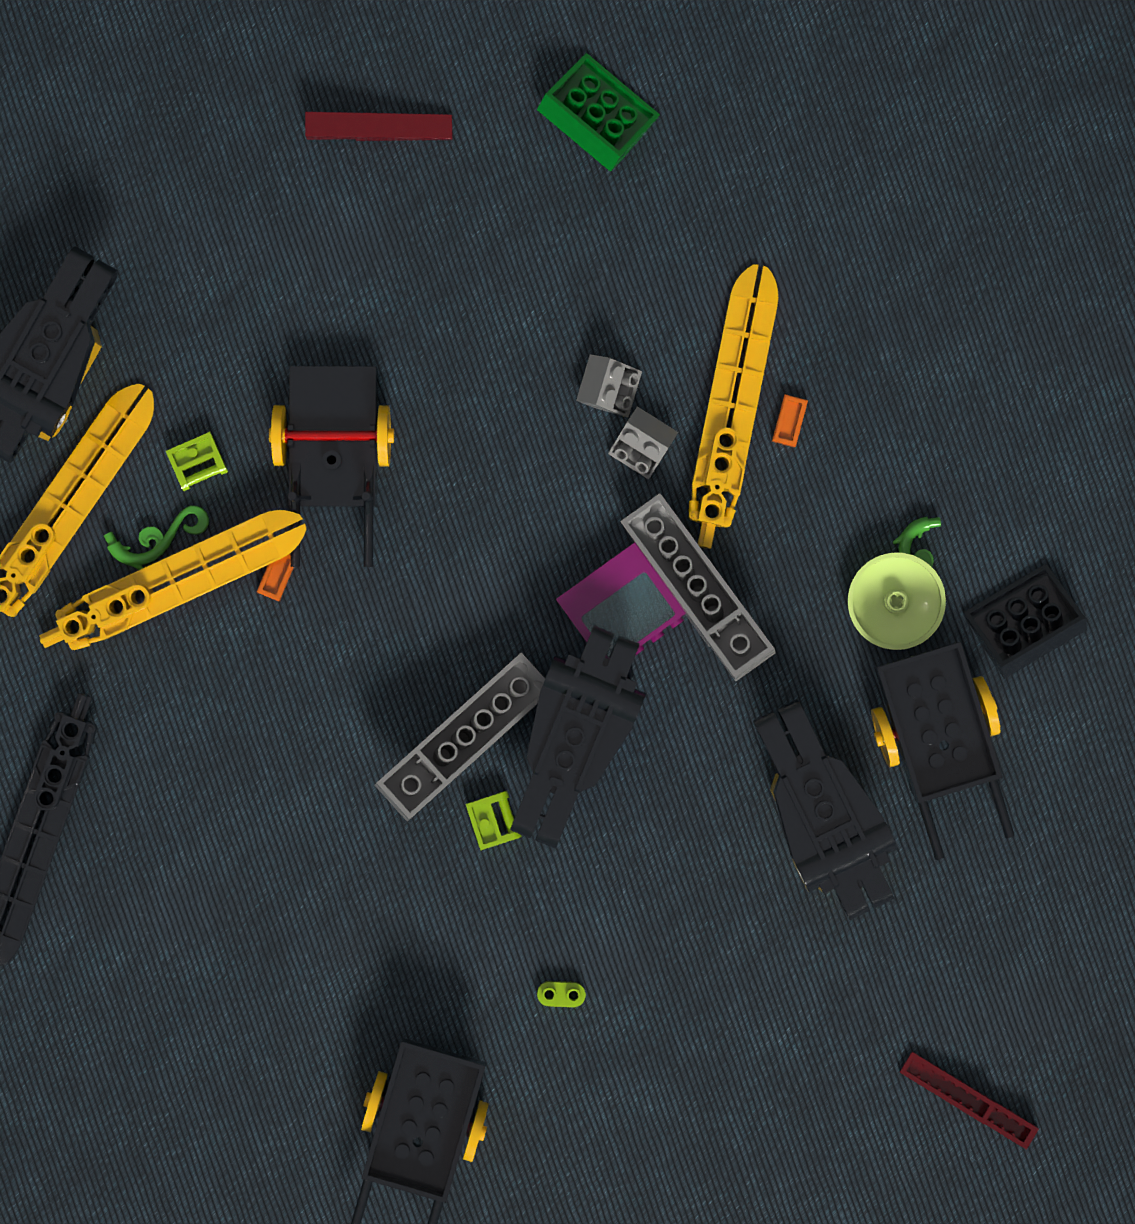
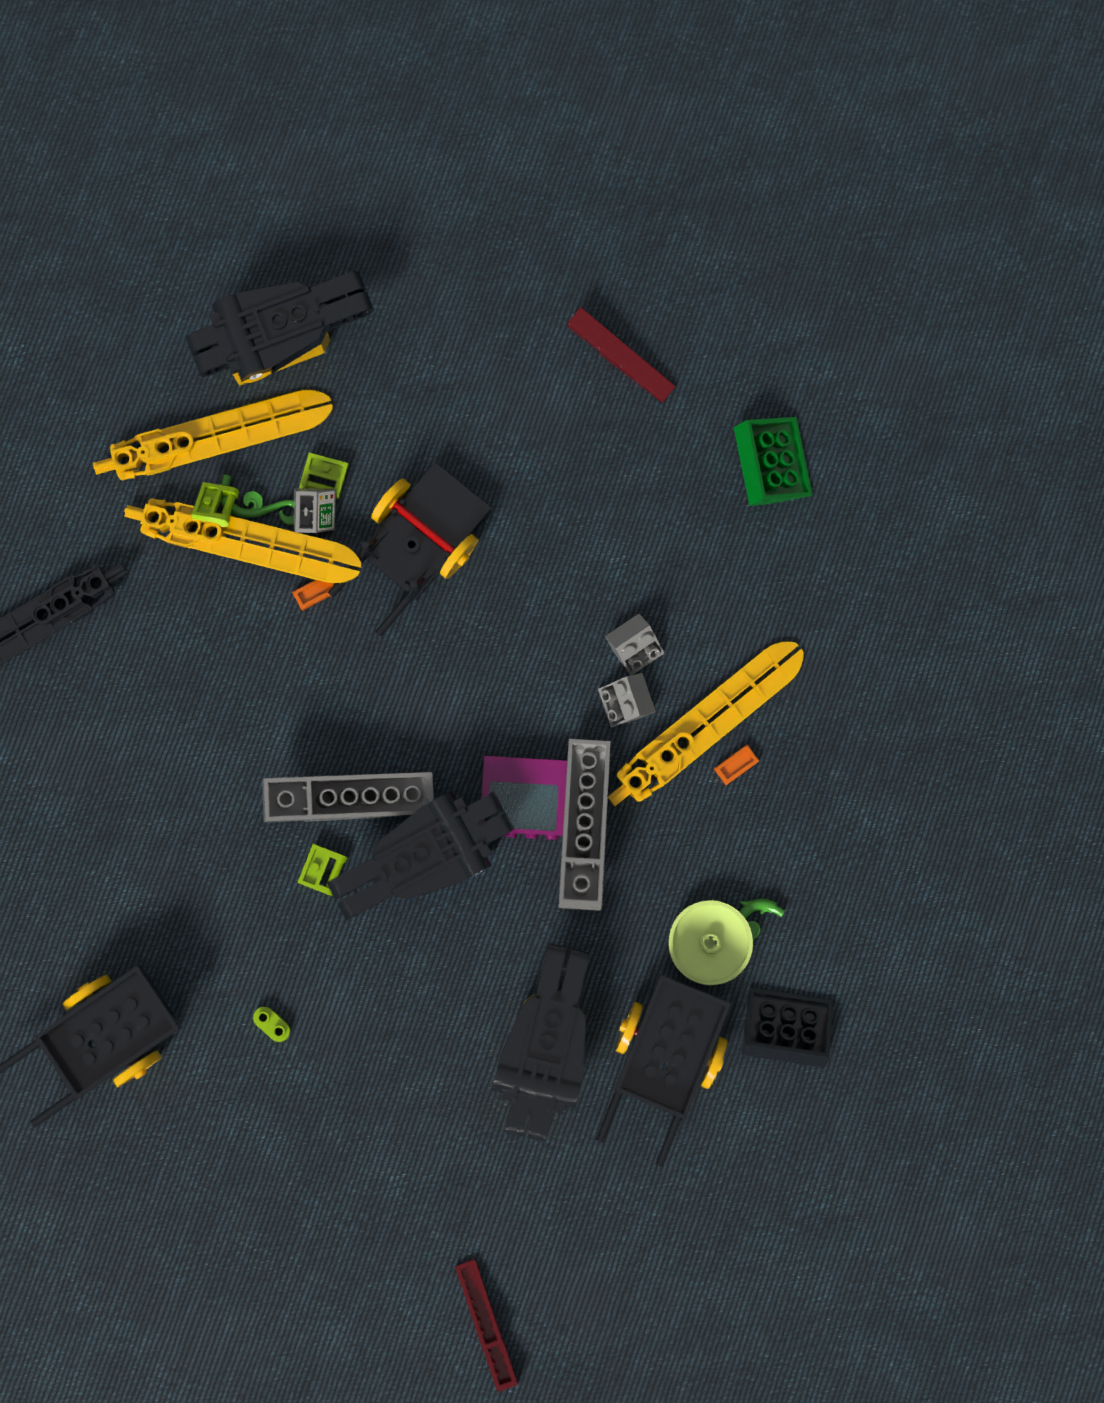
camera: 45 degrees right, 5 degrees down
(113, 572) = (209, 500): none -> lime plate
(215, 501) = (314, 510): none -> light grey slope

